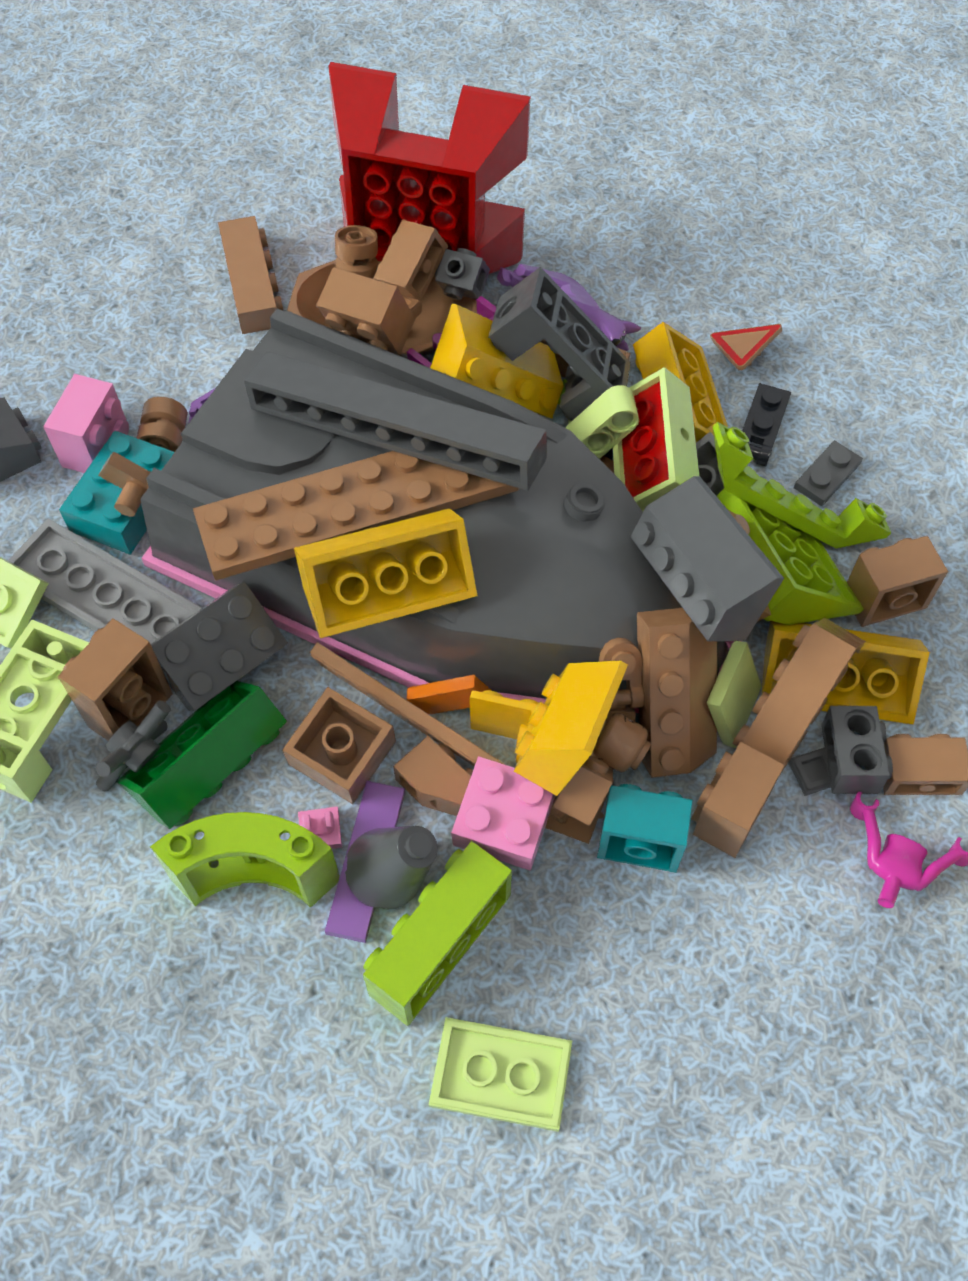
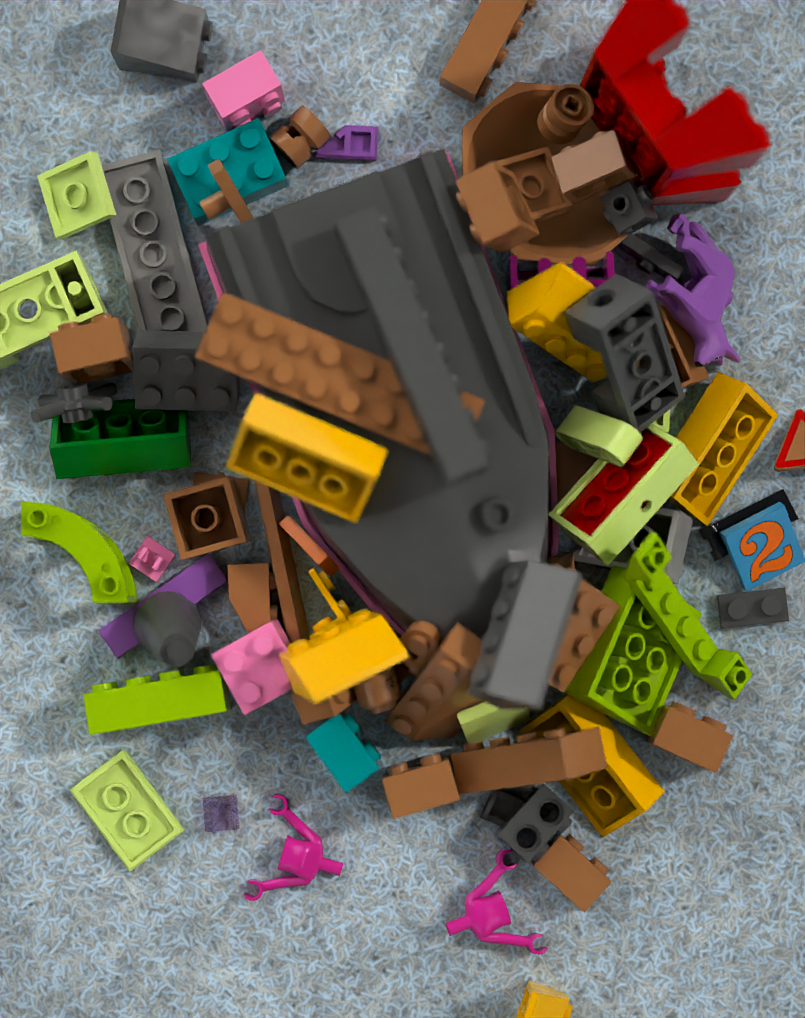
camera: 45 degrees right, 25 degrees up
(589, 994) = (221, 813): none -> clear purple tile
(695, 967) = (298, 856): none -> dark pink piece
(789, 423) = (763, 546): none -> dark azure tile

